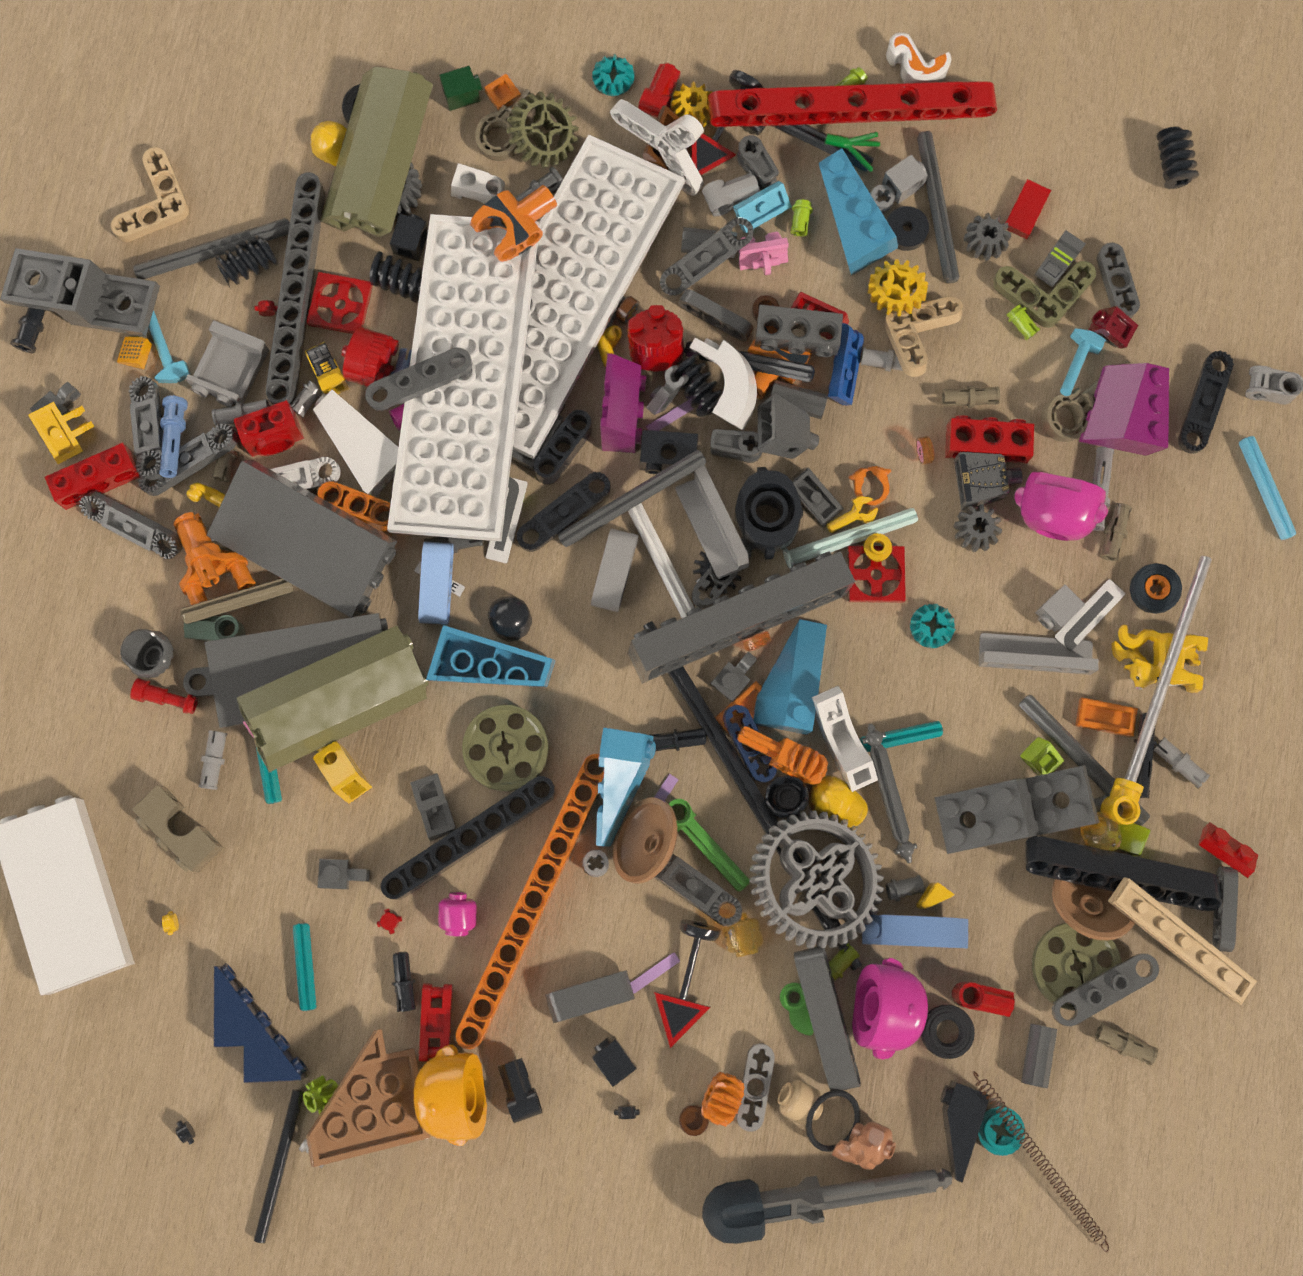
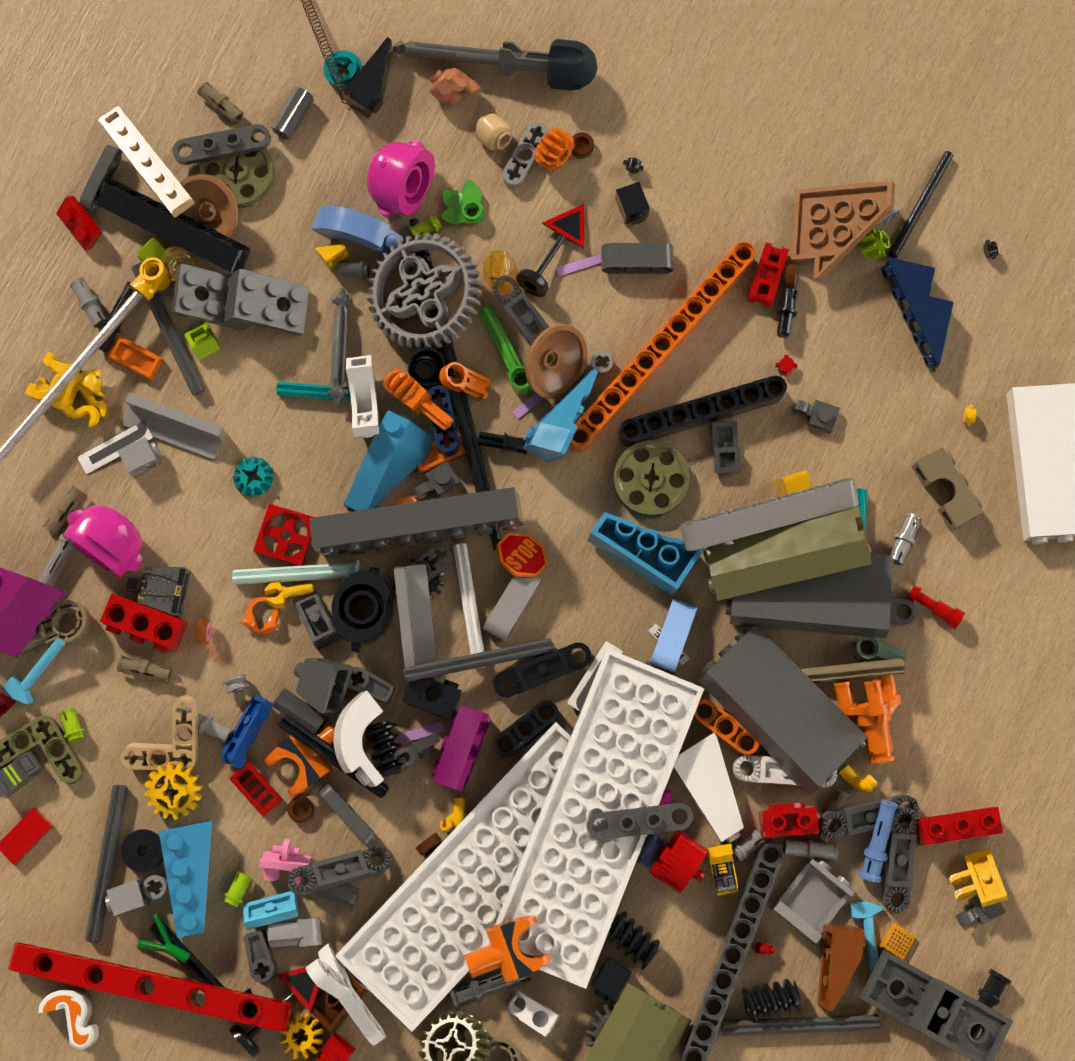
camera: 160 degrees left, 0 degrees up
(130, 525) = (934, 771): dark grey plate -> none
(147, 652) = (942, 646): dark grey hair -> none
(187, 314) = (839, 959): none -> dark orange slope
(304, 967) = (865, 349): teal axle -> none
(345, 284) = (688, 943): red piece -> none
(361, 730) = (769, 514): none -> light grey beam
(408, 1026) = (791, 276): none -> reddish brown tile
(451, 1096) = (770, 210): light orange piece -> none
(457, 914) = (728, 351): dark pink head -> none
(509, 618) = (616, 589): black hair -> none
(521, 1097) = (714, 198): black piece -> none
(618, 620) = (521, 555): none -> piece
(656, 339) = (411, 802): red piece -> none
(736, 792) = (468, 381): none -> orange piece
(808, 321) = (265, 768): dark grey brick -> none
(817, 1103) = (479, 124): black tyre -> none
(827, 1019) = (451, 184): dark grey beam -> none
(836, 798) = (384, 353): yellow piece -> none
(856, 77) = (142, 1015): lime pin -> none
(873, 408) = (235, 683): none -> light grey bush
(875, 555) = (282, 559): yellow plate -> none
(964, 1039) = (349, 140): black tyre -> none
(973, 537) = (190, 552): dark grey gear -> none
(985, 998) = (320, 166): red piece -> none
(987, 237) = (62, 818): dark grey gear -> none
(1168, 595) = (40, 444): black bush -> none

